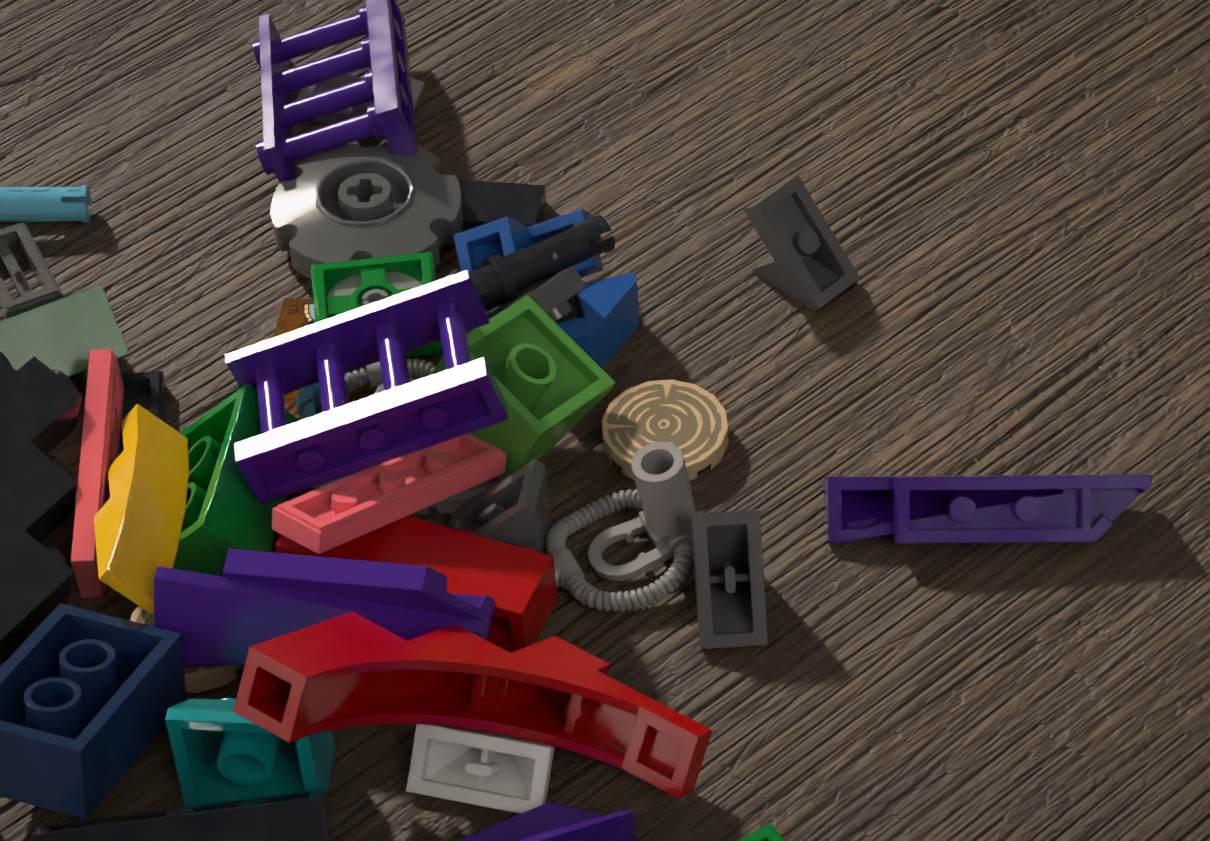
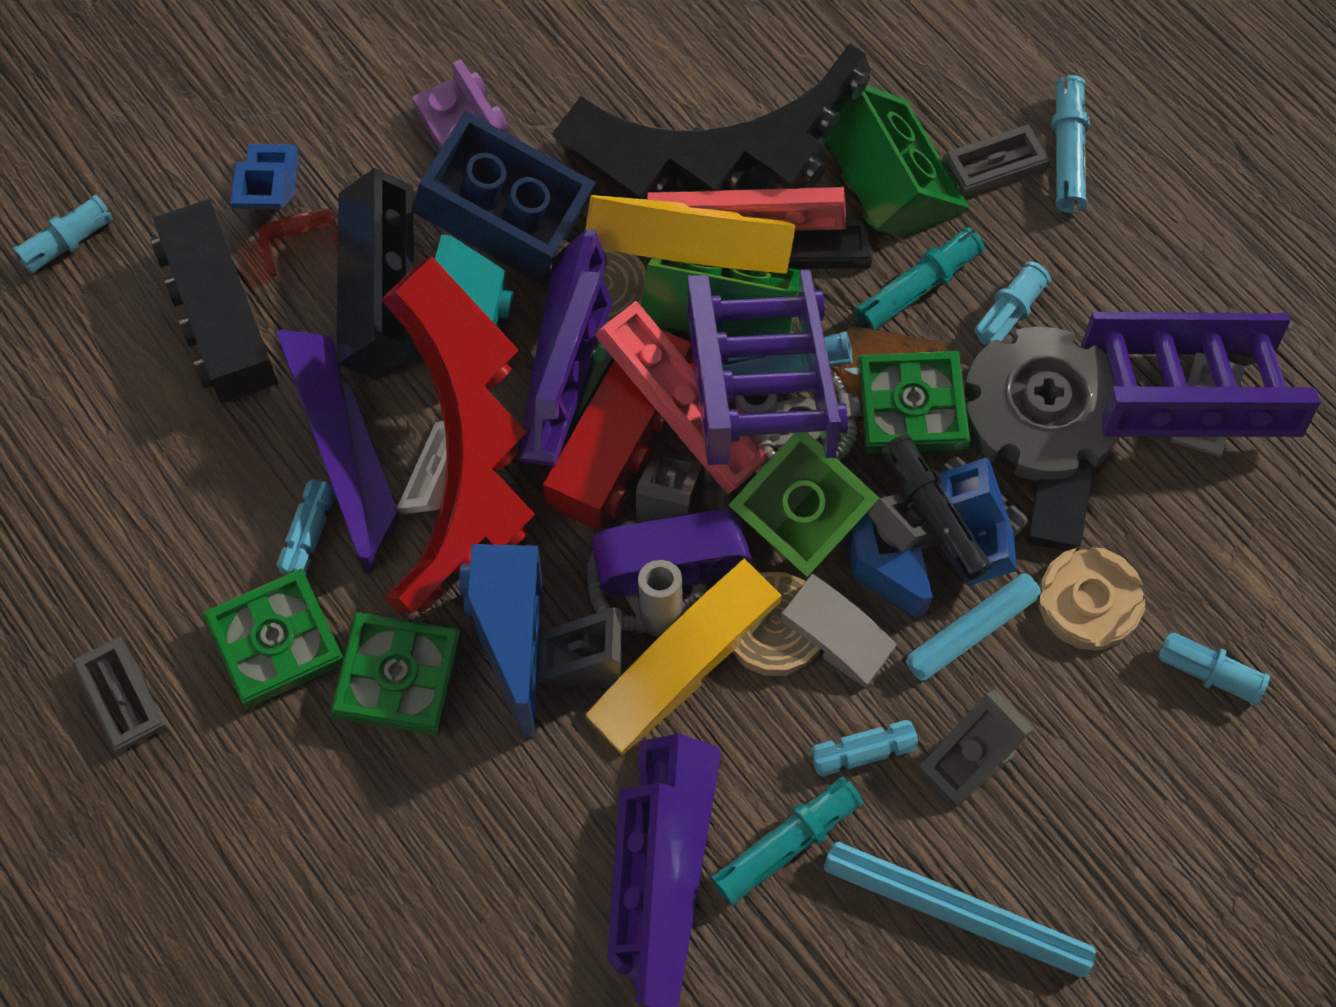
camera: 90 degrees right, 20 degrees up
(179, 313) = (933, 270): none -> teal pin
(228, 247) = (1013, 303): none -> medium azure axle
(597, 503) = (699, 545): none -> dark purple beam
(604, 179) = (1091, 598): none -> tan tile
(660, 275) = (973, 627): none -> medium azure axle
(667, 371) = (840, 629): none -> light grey slope
(677, 88) = (1214, 668): none -> medium azure axle
(723, 480) = (683, 656): none -> yellow slope
(731, 629) = (505, 598): none -> blue slope
(781, 772) = (396, 674): none -> green piece
(808, 348) = (864, 748): none -> medium azure axle
(910, 384) = (777, 848): none -> teal pin
(974, 272) = (960, 909): none -> medium azure axle

